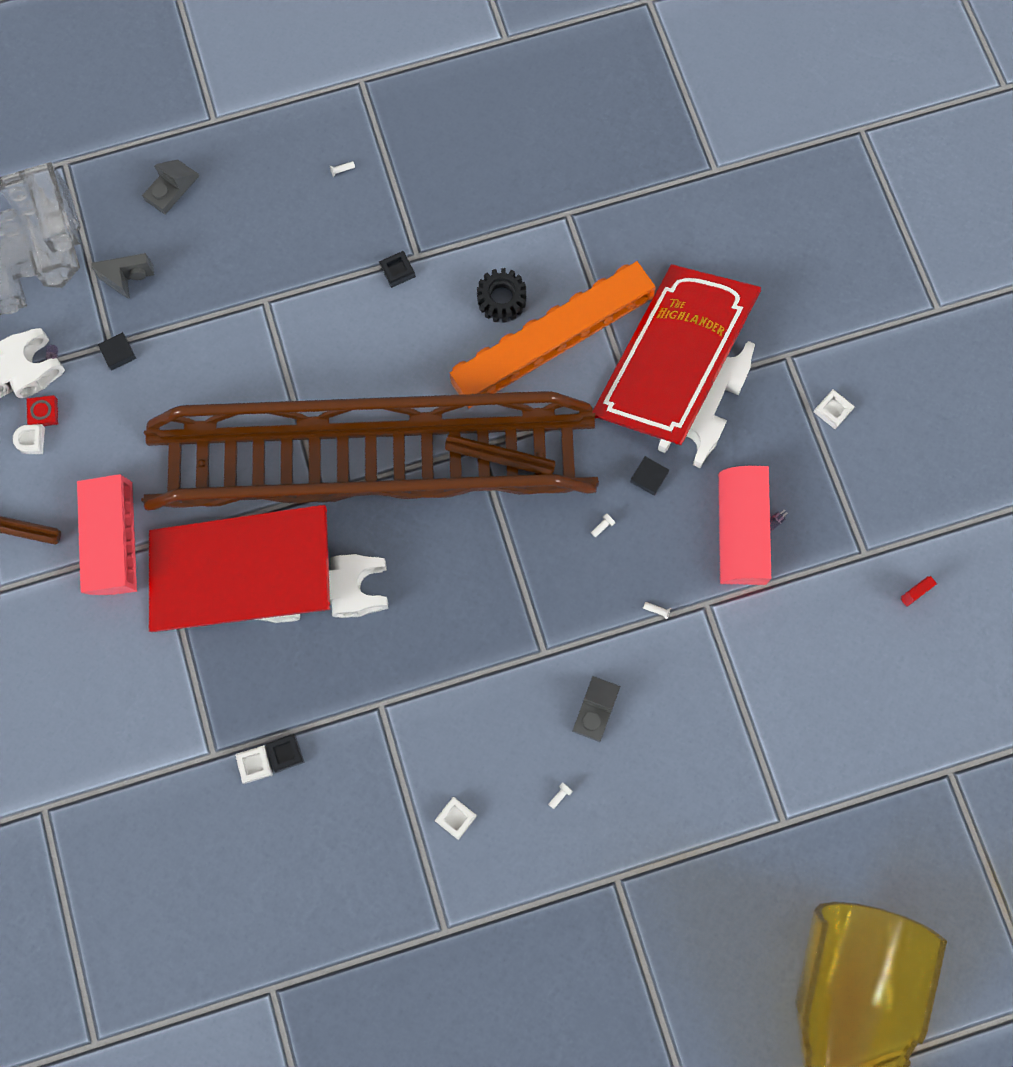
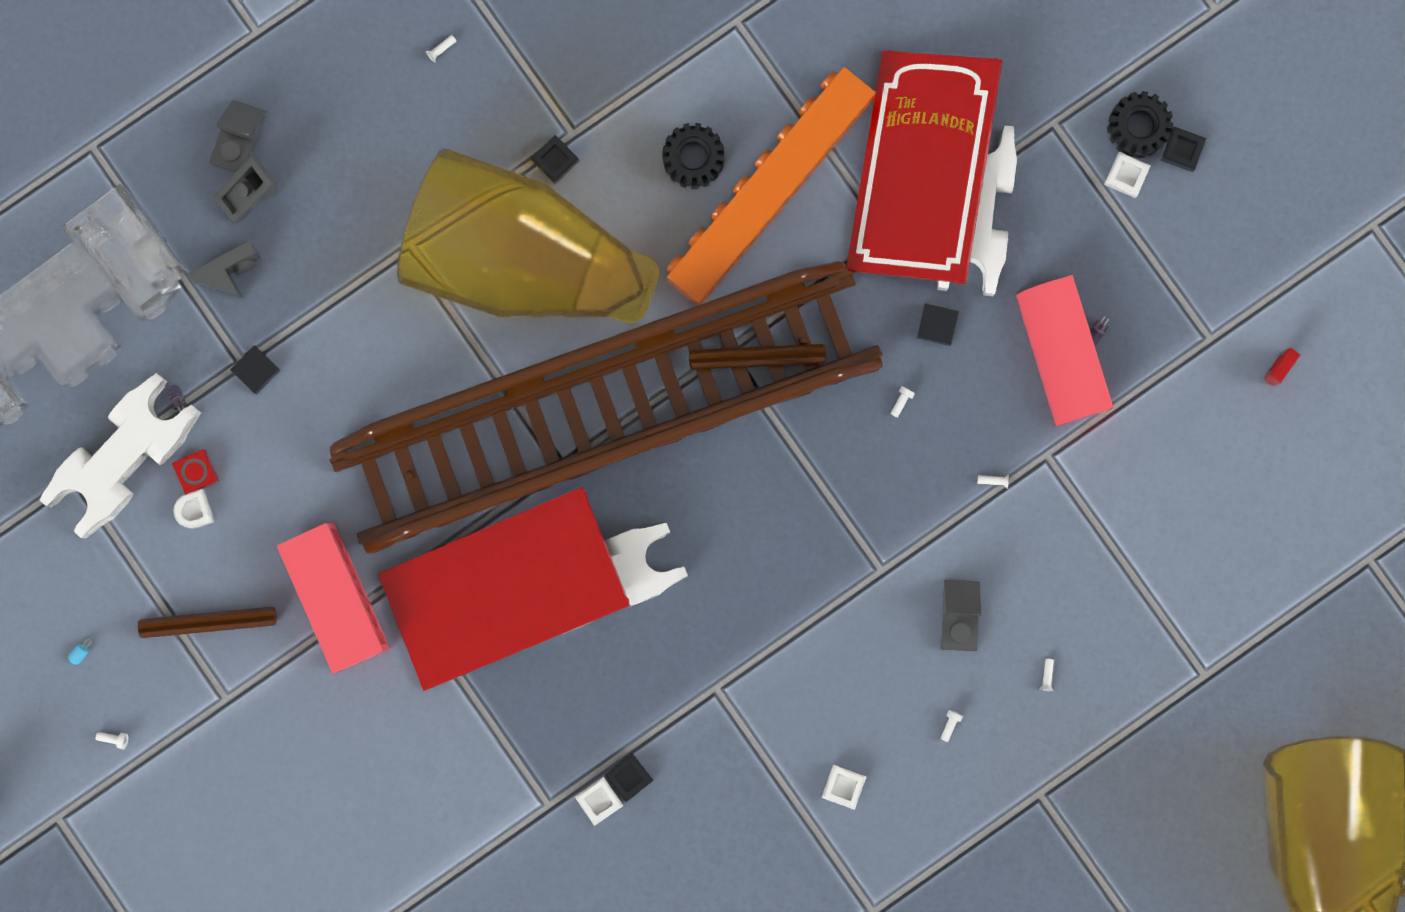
camera: 20 degrees left, 10 degrees up
(159, 219) = (246, 190): none -> dark grey slope
(343, 313) = (516, 247): none -> clear yellow windscreen
(653, 780) = (1047, 677): none -> white piece
(862, 360) = (1154, 109): none -> black tyre
(884, 403) = (1183, 149): none -> black tile

